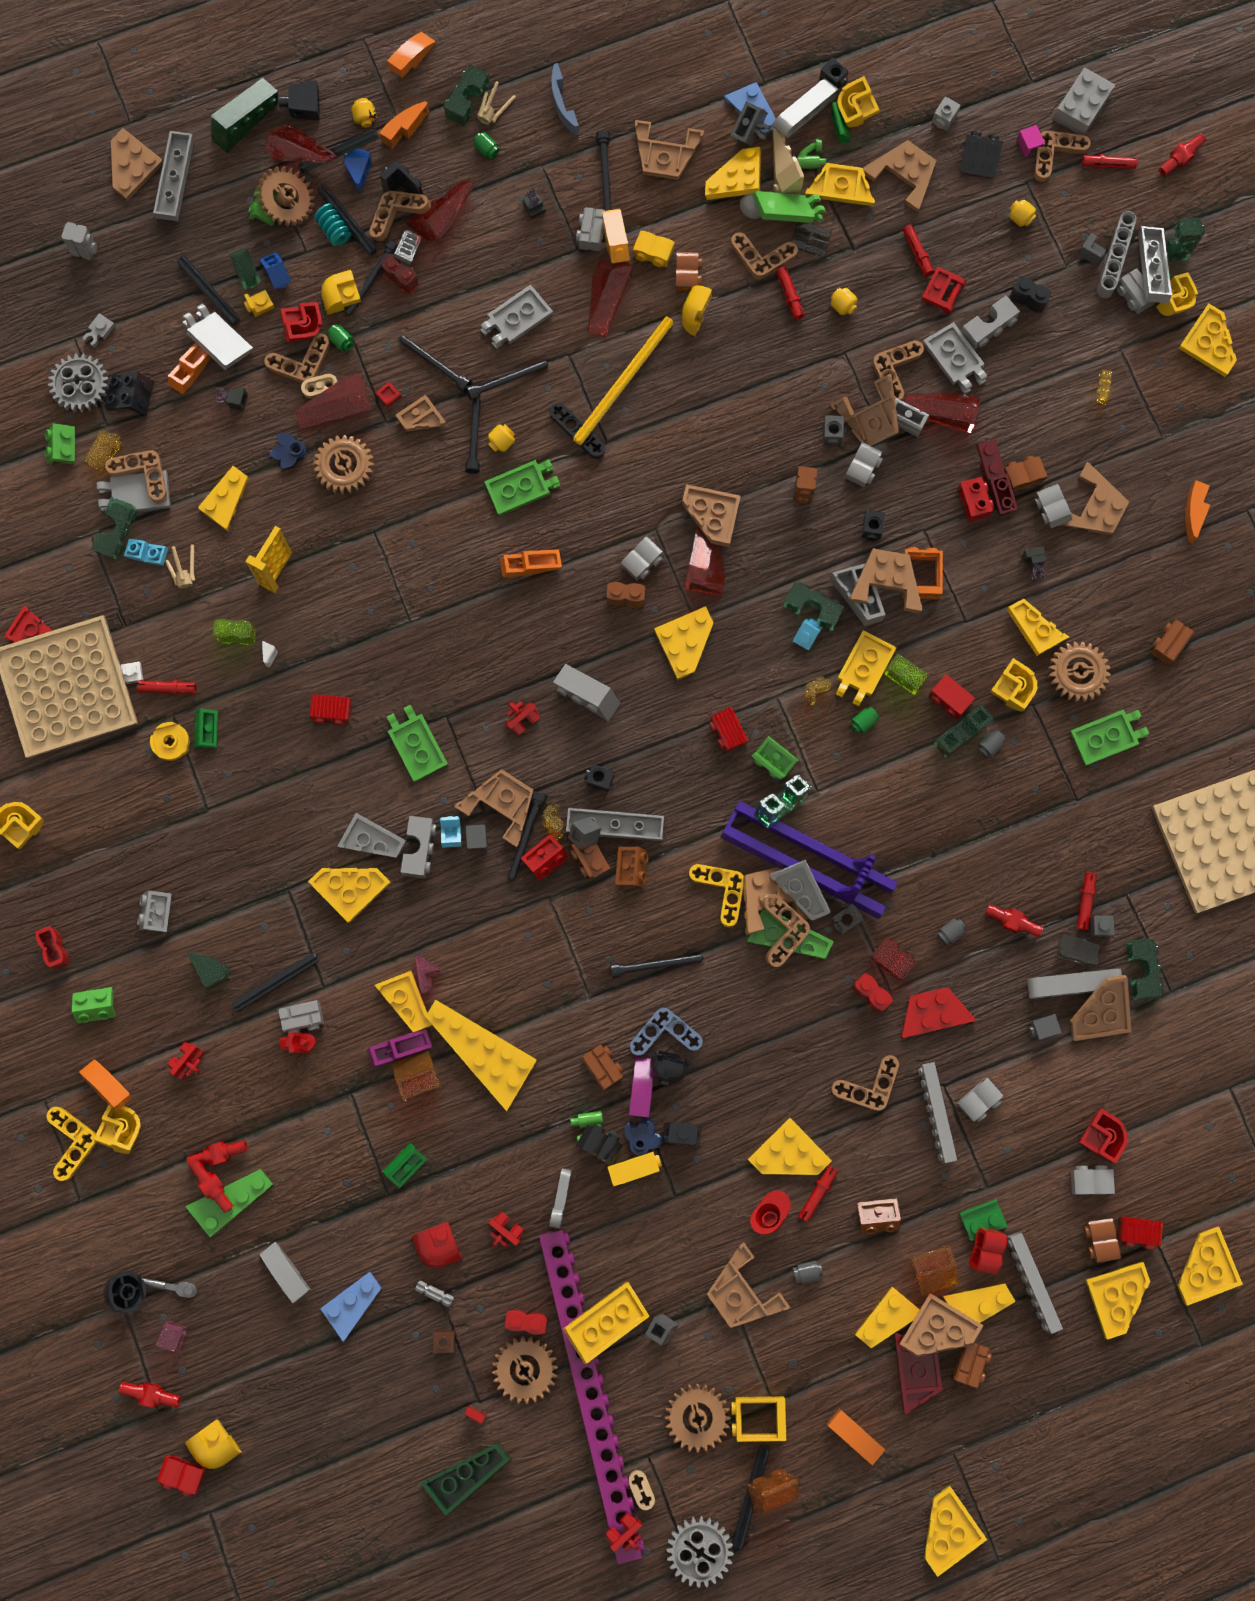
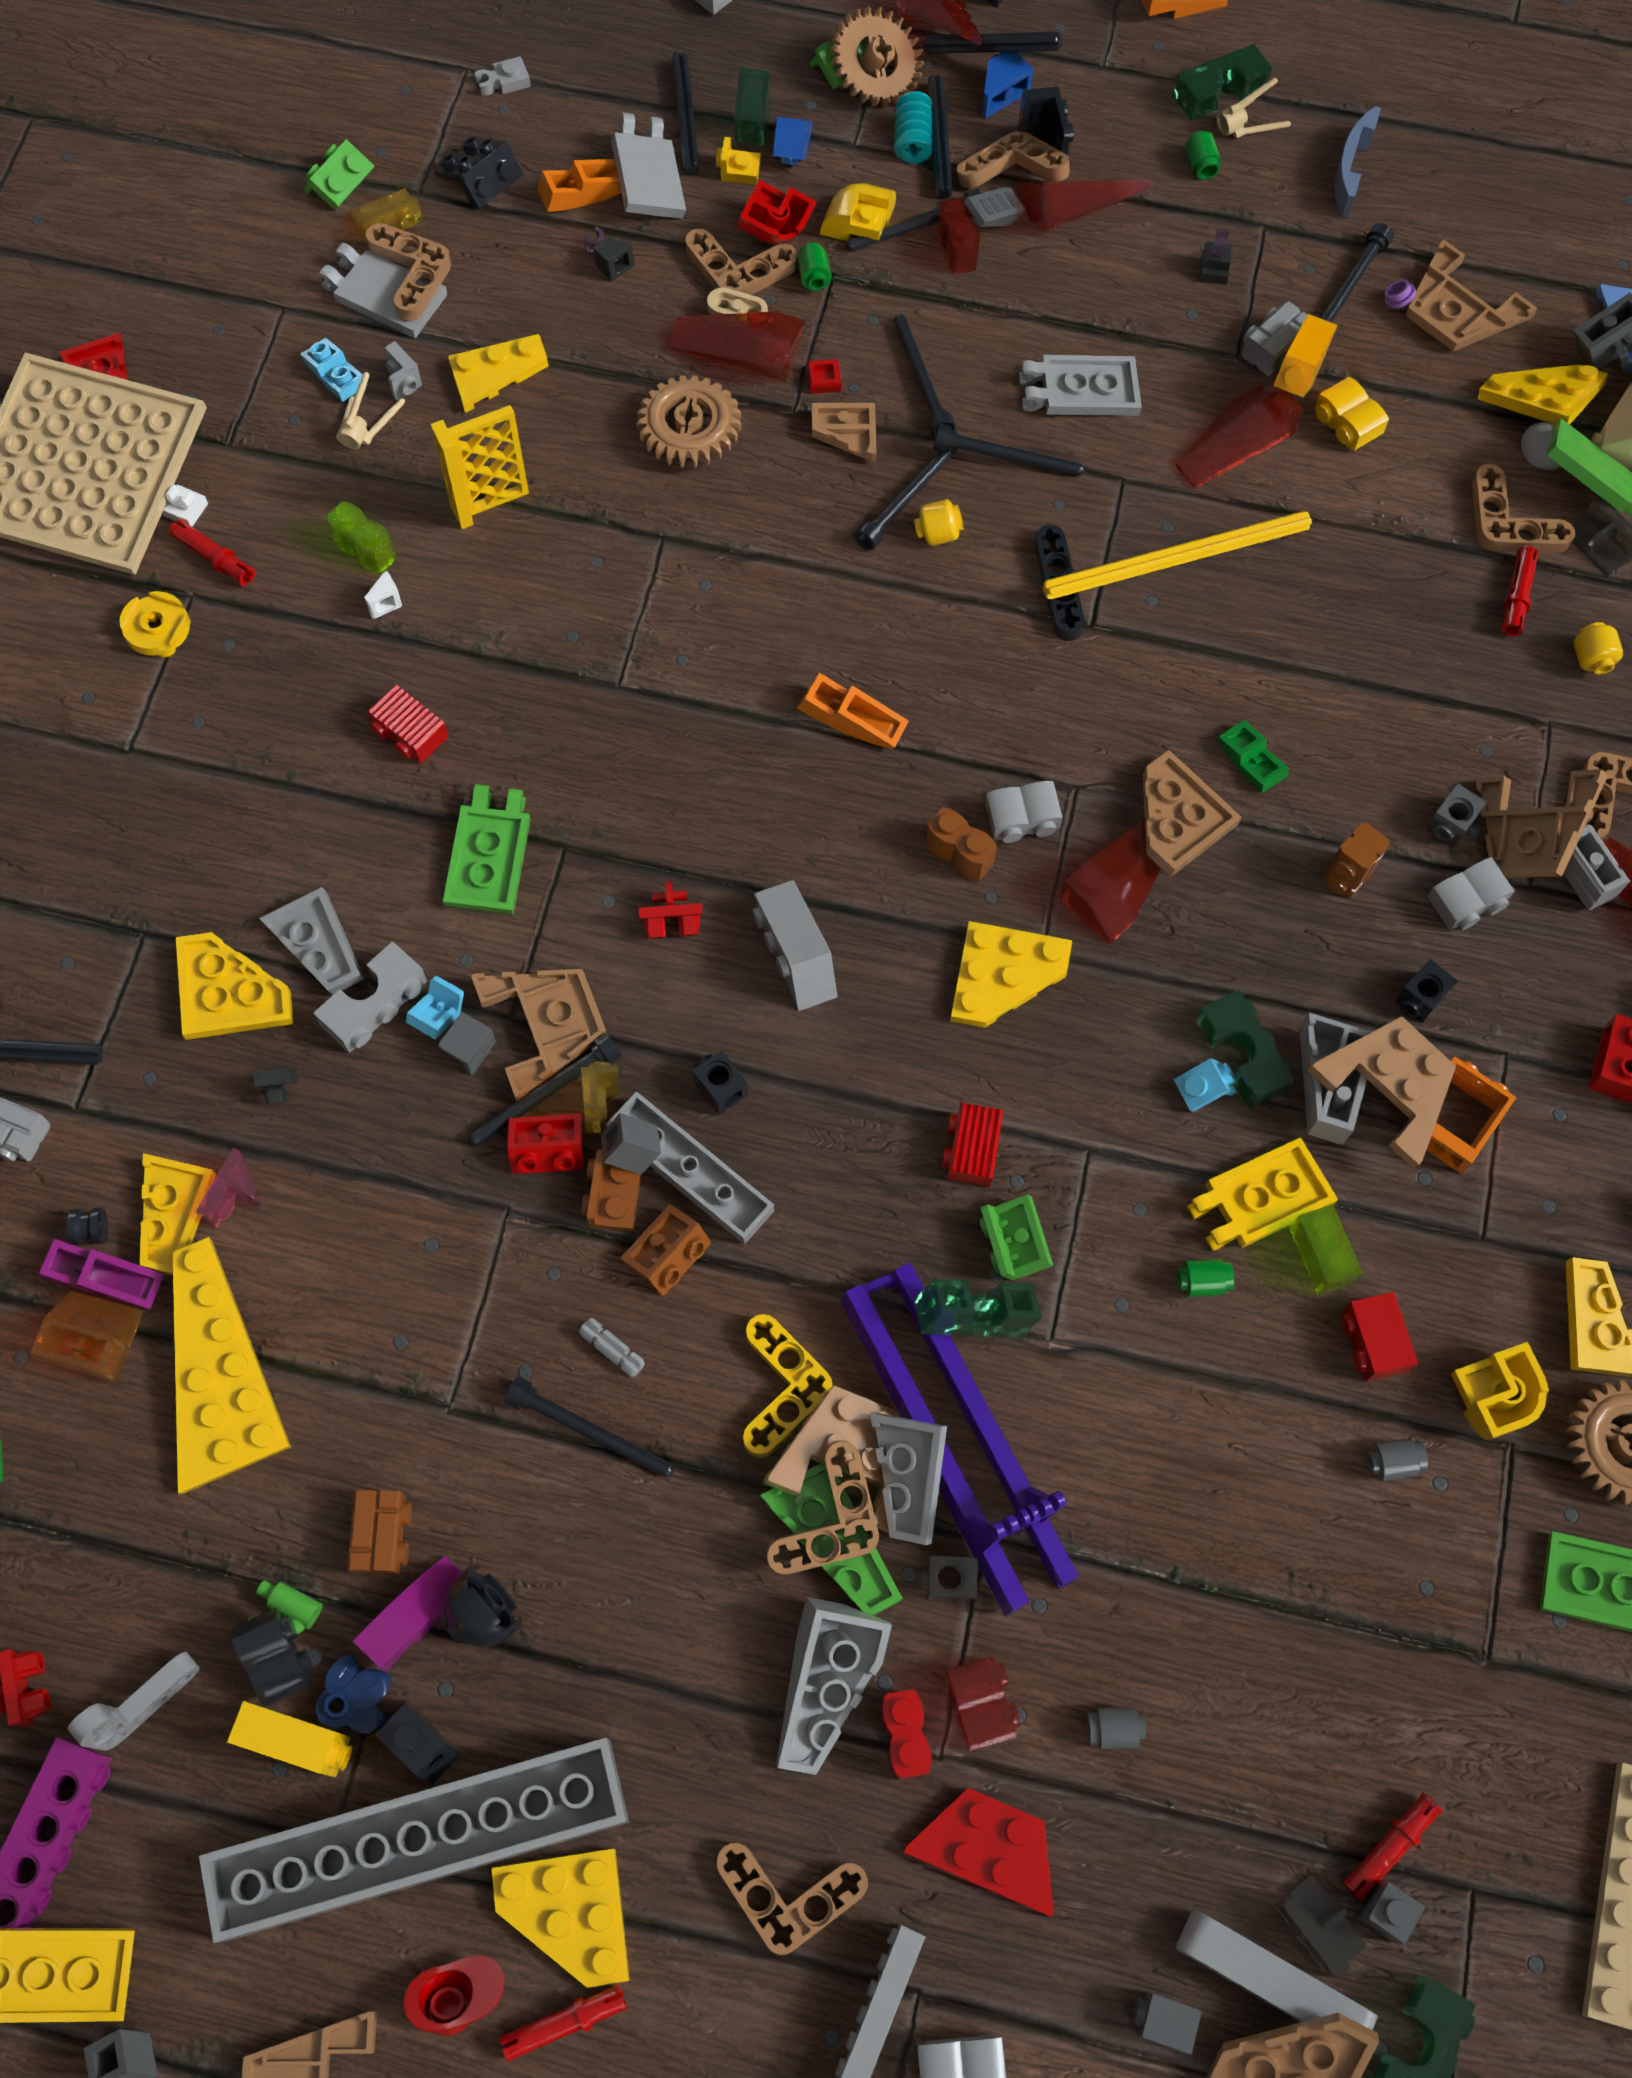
camera: 35 degrees right, 10 degrees down
(79, 383) = (423, 118): light grey gear -> none
(111, 544) = (299, 327): clear green arch -> none
(180, 529) = (403, 371): none -> light grey bracket
(205, 728) = (219, 641): green slope -> none
(285, 451) = (626, 363): dark blue plate -> none
(363, 112) = (1067, 20): yellow head -> none
(376, 1032) = (87, 1226): none -> black wheel
(404, 124) = (1108, 68): orange slope -> none
(405, 913) = (275, 1082): none -> pearl dark grey tile
(521, 486) = (920, 604): bright green tile -> none
(633, 165) = (1399, 294): none -> medium lavender plate
(639, 924) = (611, 1347): none -> light grey axle
(668, 1026) = (533, 1545): sand blue beam -> none
(687, 271) = (1380, 471): dark orange brick -> none
(694, 308) = (1355, 520): yellow brick -> none
(711, 1169) = (412, 1840): none -> light grey brick
(724, 461) = (1249, 753): none -> green slope
(819, 685) = (1165, 1173): clear yellow bracket -> none
(825, 991) = (830, 1668): none -> light grey wedge
(963, 731) = (1382, 1404): clear green arch -> none
(1014, 920) = (1238, 1788): red pin -> none

